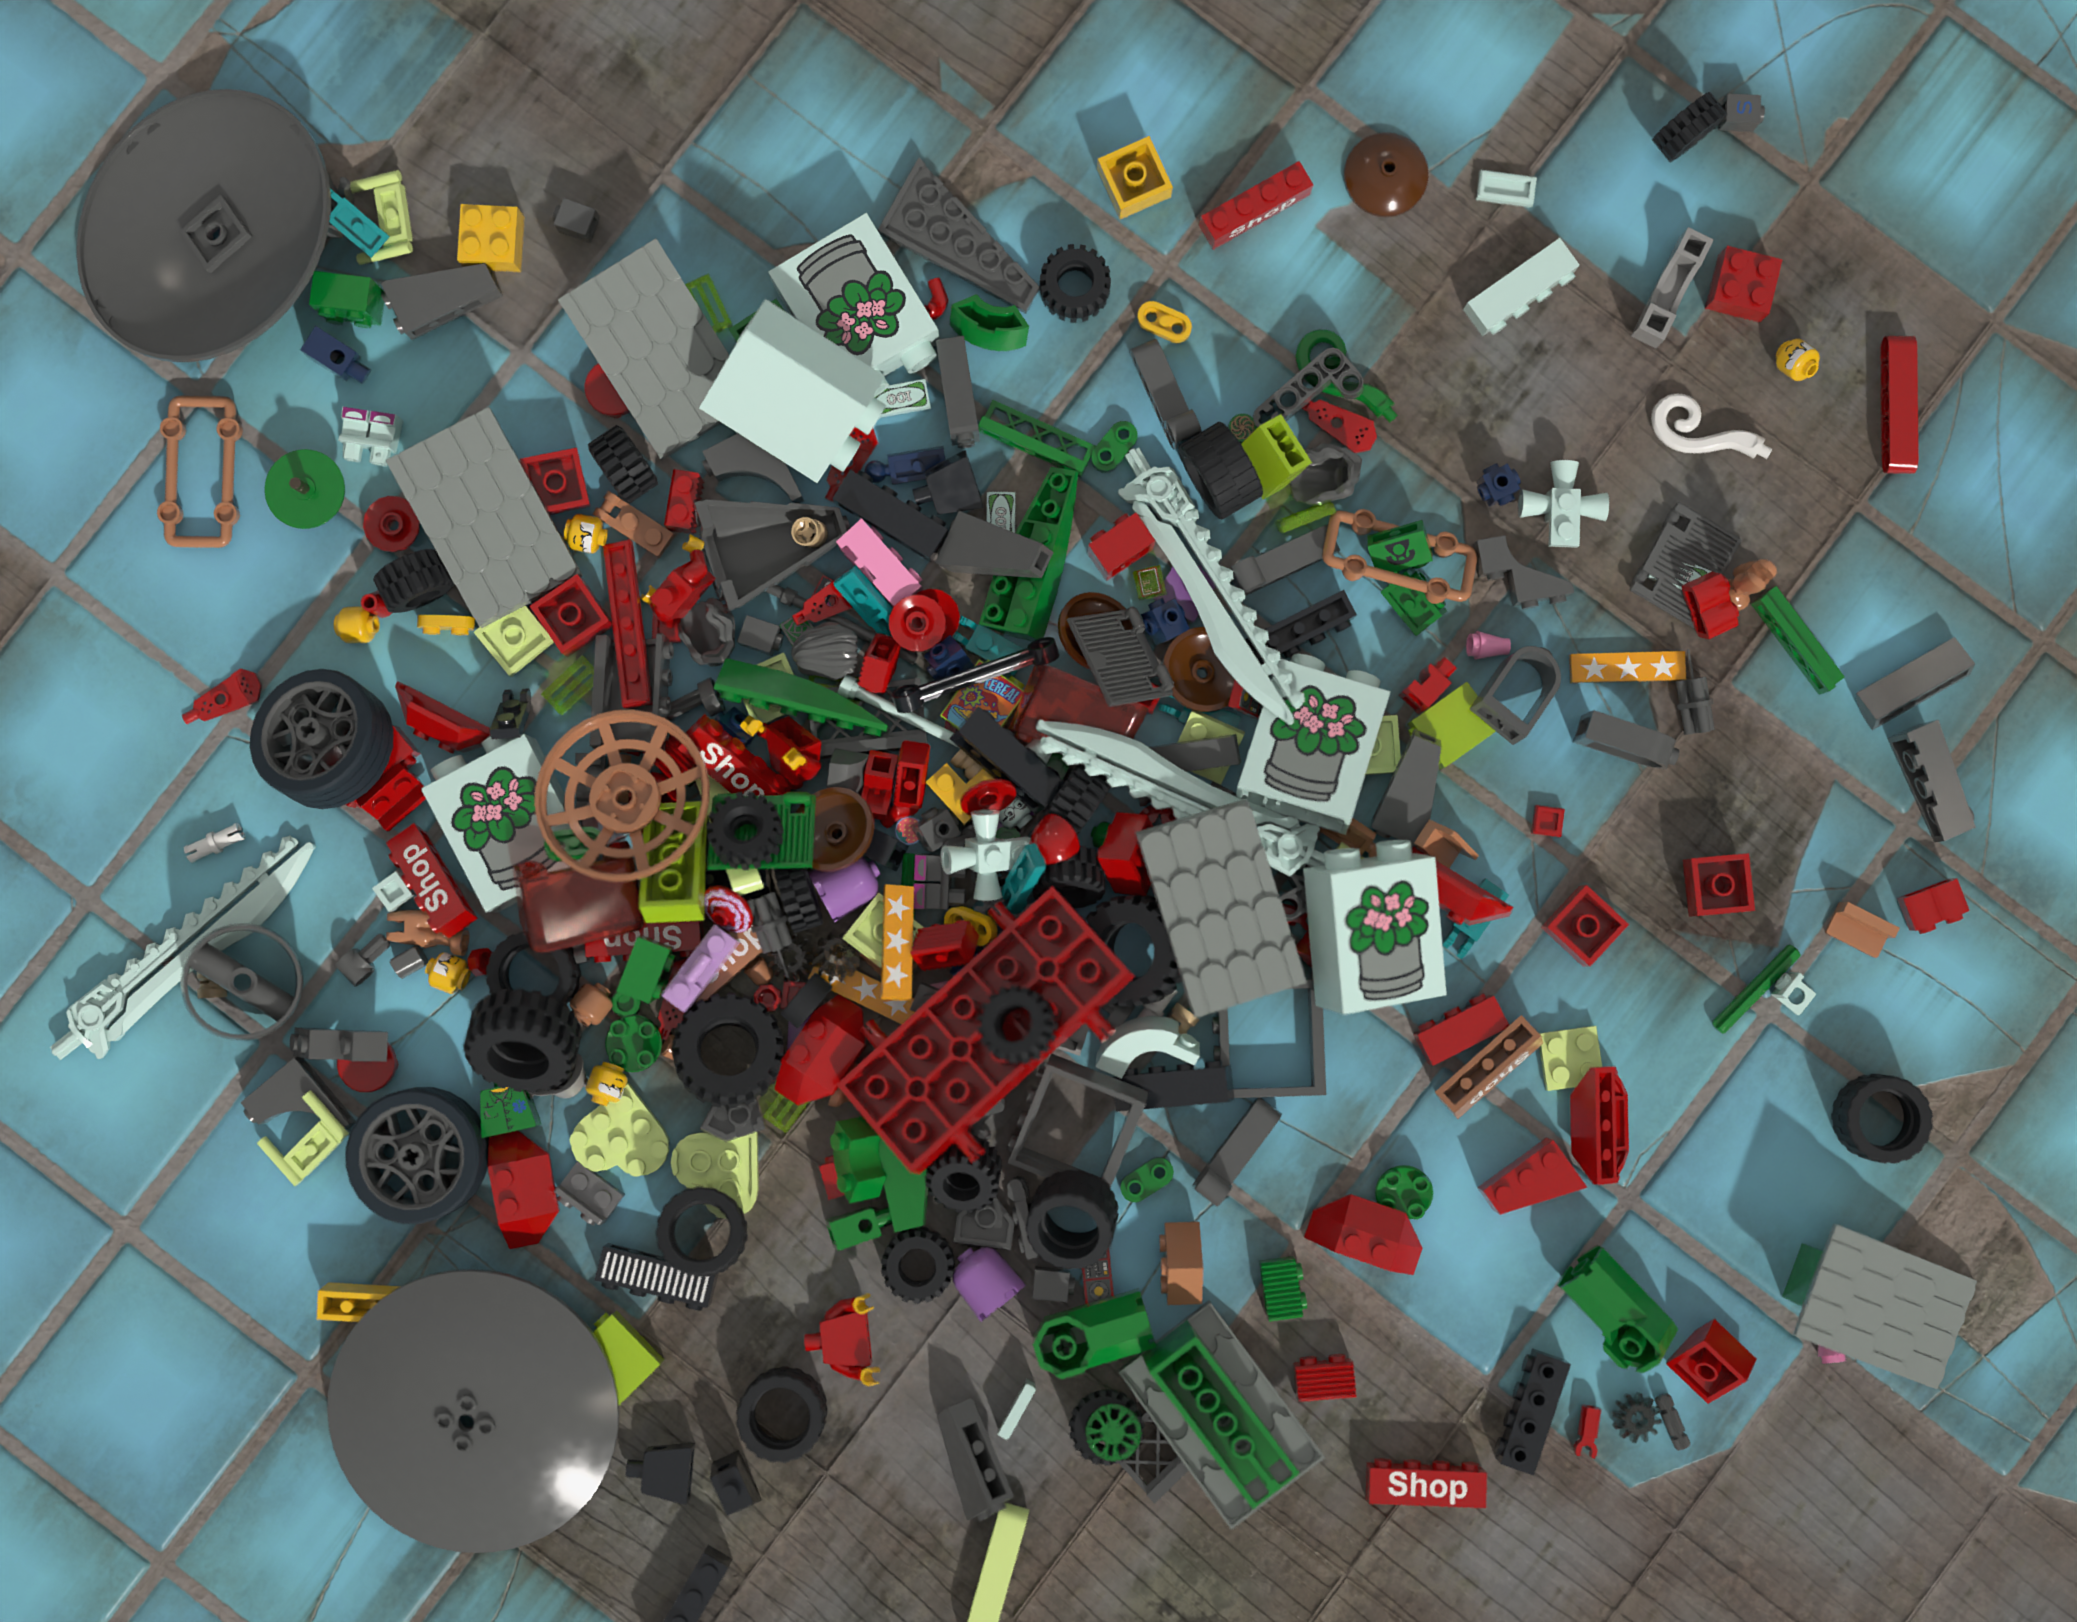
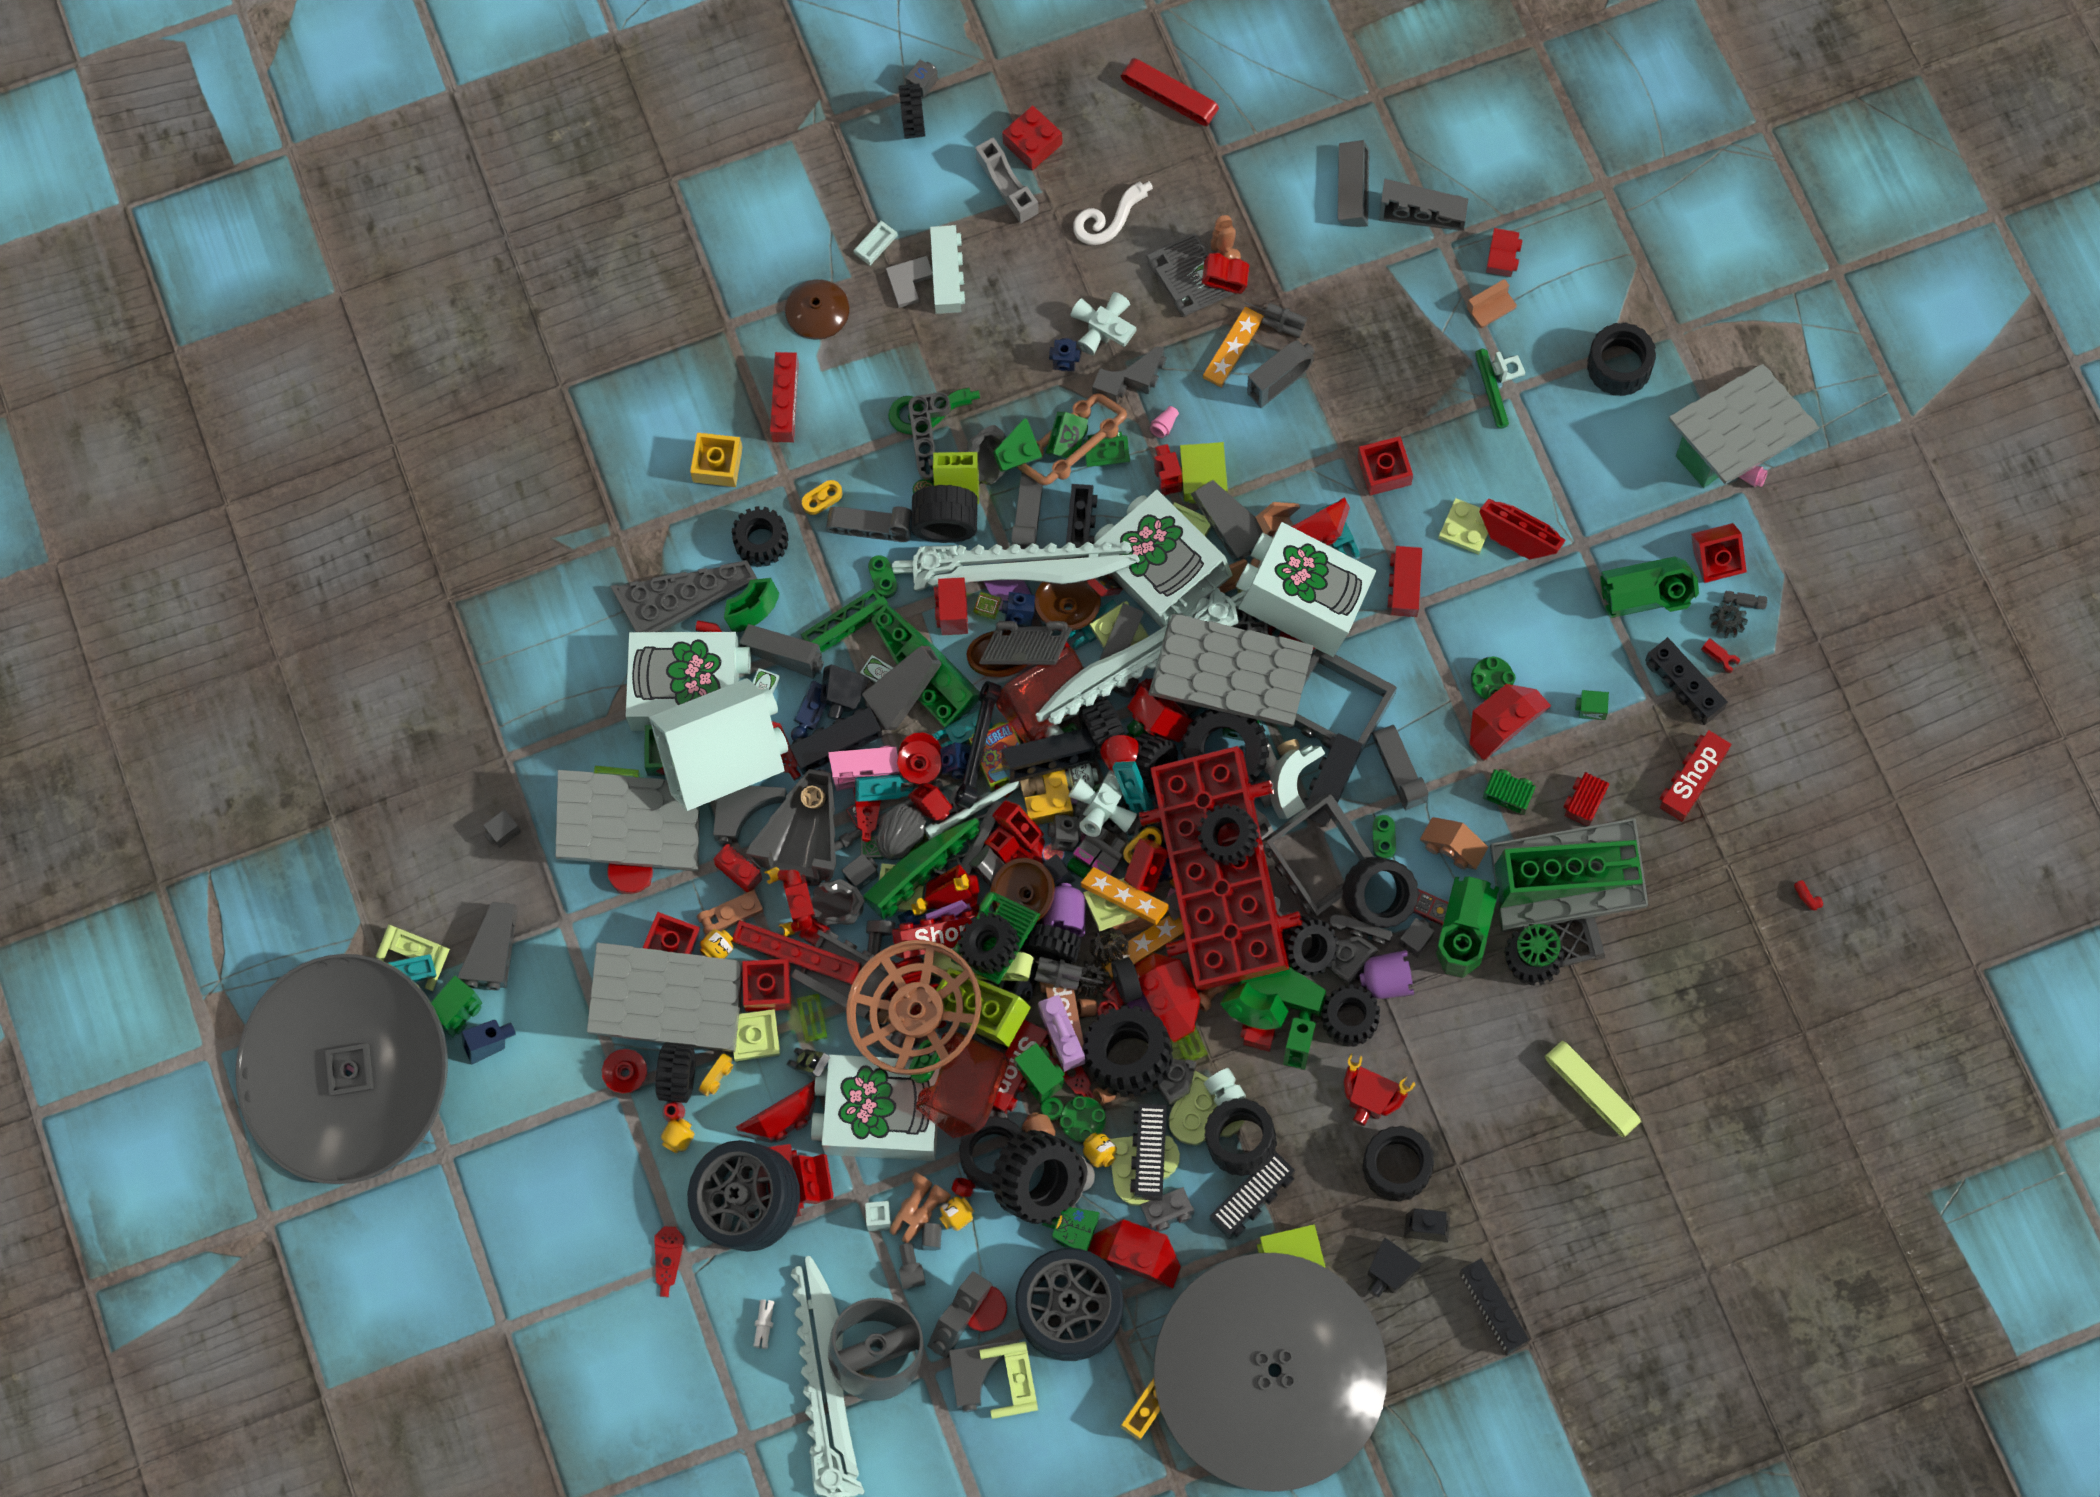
camera: 55 degrees left, 15 degrees down
(225, 512) = (515, 1217): nougat bar -> none
(304, 489) = (564, 1110): green piece -> none
(370, 431) = (549, 1060): light aqua hips -> none
(431, 881) = (887, 1182): red brick -> none
(491, 237) = (475, 890): yellow brick -> none
(622, 464) = (688, 889): black tyre -> none
(632, 1141) = (1150, 1152): none -> black brick
(727, 909) = (1032, 985): dish -> none
(747, 1182) = (1223, 1087): none -> light aqua wheel
(770, 766) = (955, 908): none -> medium lavender piece
(973, 1461) = (1507, 1054): dark grey slope -> none
(988, 794) = (1064, 778): red dish -> none
(1017, 1409) = (1488, 1009): light aqua tile -> none
(1305, 516) = (1006, 487): clear neon green tile -> none
(1348, 430) = (965, 423): red piece -> none
(1349, 503) = (1017, 448): none -> green wing
(1440, 1323) = (1592, 705): none -> green brick
(1486, 246) = (904, 276): none -> light grey tile
(1489, 1067) = (1441, 576): nougat brick -> none
(1498, 715) = (1214, 436): dark grey window -> none
(1531, 1179) = (1530, 591): red wedge -> none
(1547, 821) = (1302, 451): red tile -> none
(1718, 885) = (1409, 370): red brick -> none
(1797, 359) = (1101, 133): yellow head -> none
(1798, 640) = (1282, 236): green fence -> none

